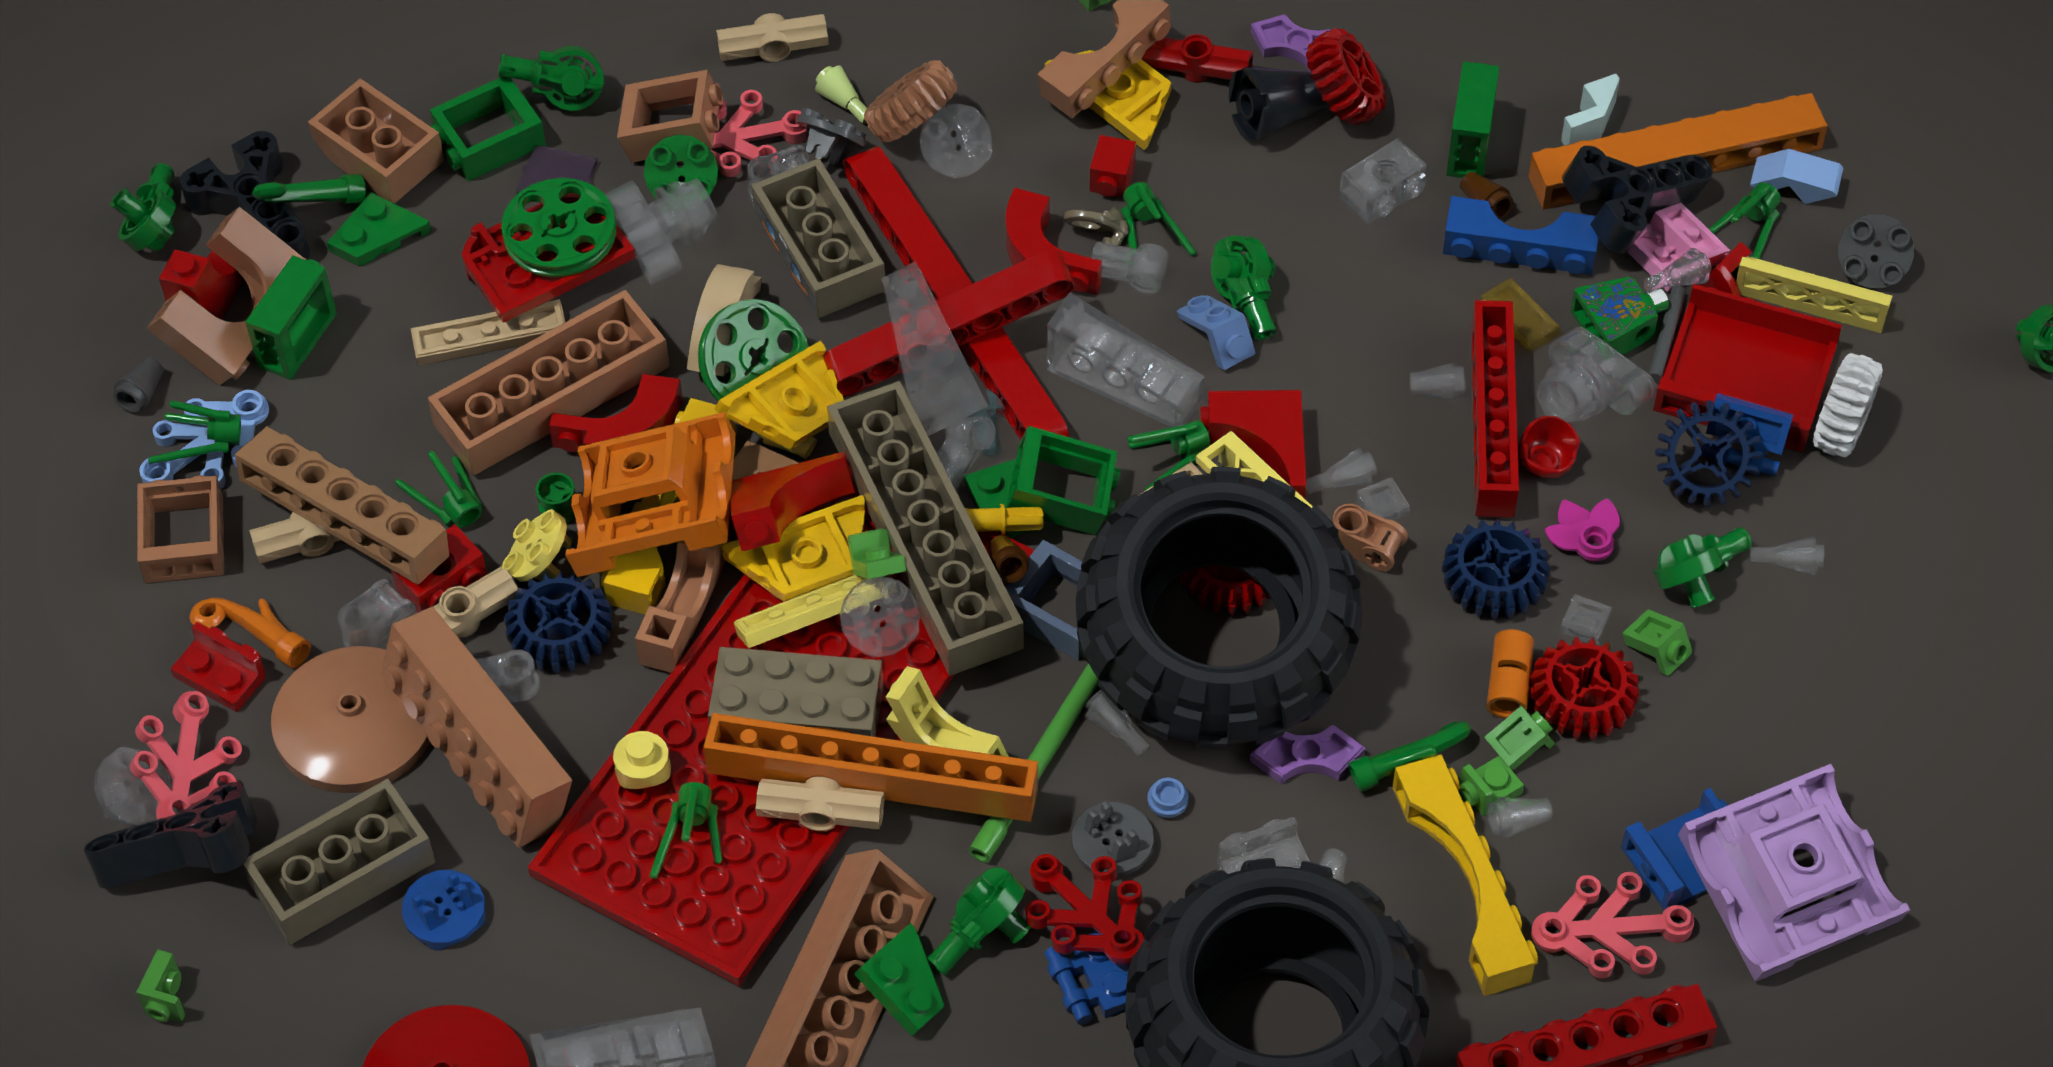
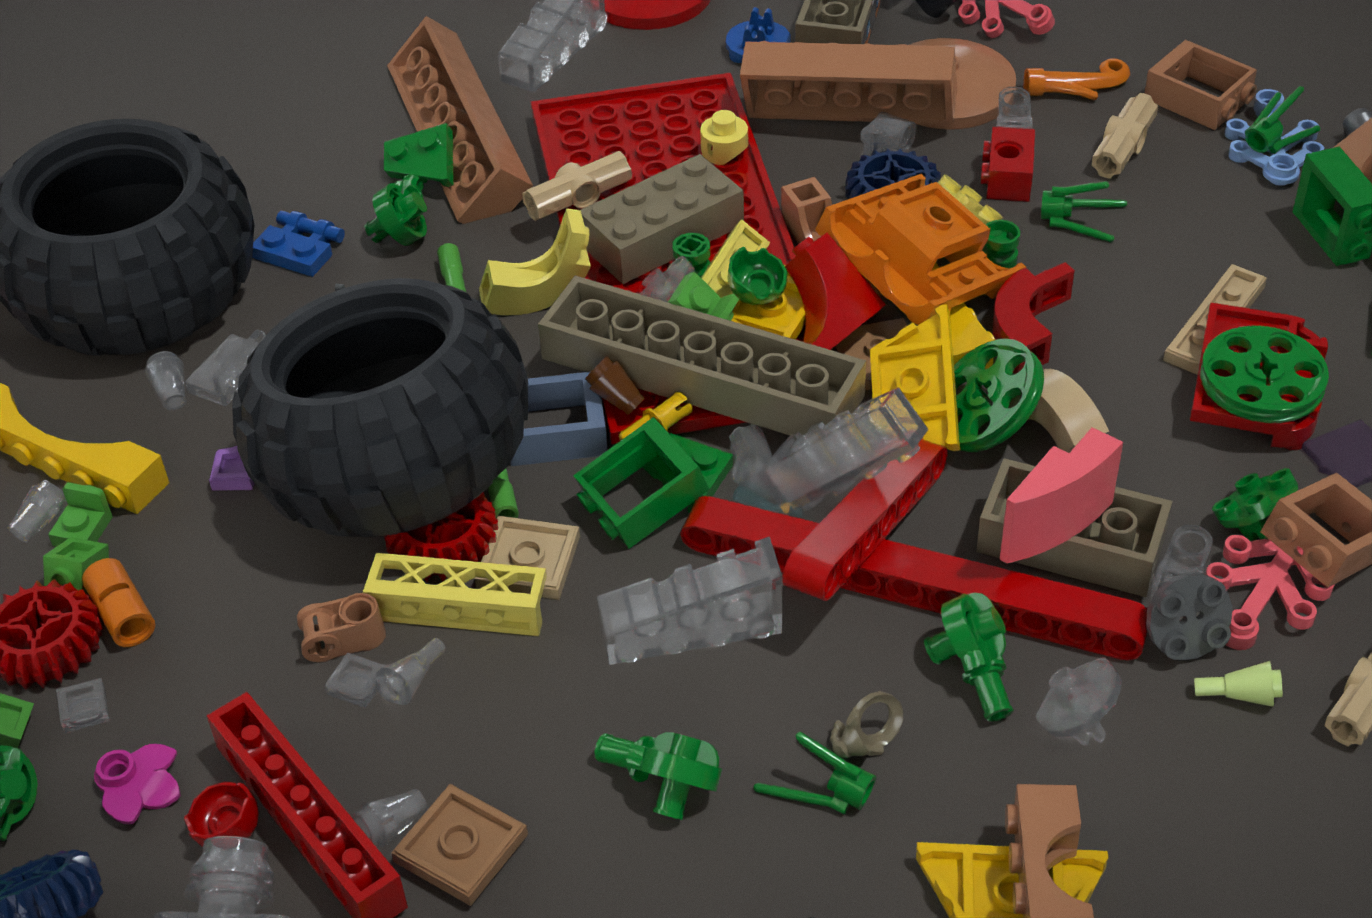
camera: 140 degrees right, 10 degrees down
(219, 667) = (1063, 52): red bracket -> none
(343, 504) = (1111, 121): medium nougat brick -> none
(476, 601) = (964, 147): tan piece -> none
(558, 372) = (1111, 296): nougat brick -> none
(654, 226) = (1208, 448): clear beam -> none
(692, 809) = (658, 136): green plant -> none
(810, 550) = (756, 276): none -> green hair
(817, 636) = (695, 249): none -> green wheel
(845, 197) = (1061, 496): none -> coral slope
(898, 768) = (534, 217): orange brick -> none
(910, 101) = (1157, 684): nougat gear -> none
(971, 210) = (978, 638): none -> green pin
(1025, 228) = (891, 659): red arch -> none
(1048, 876) = (287, 243): red plant -> none
(1112, 166) = (917, 796): red brick -> none
(1139, 267) = (779, 719): clear piece -> none
(1185, 439) = (578, 599): green plant -> none
(1224, 327) = (652, 707): medium blue bracket -> none
(1267, 423) = (513, 656): red arch -> none
(1369, 771) = (163, 480): green plant -> none
(1409, 336) = (460, 844): none -> medium nougat plate
(1487, 578) = (194, 669): dark blue gear -> none

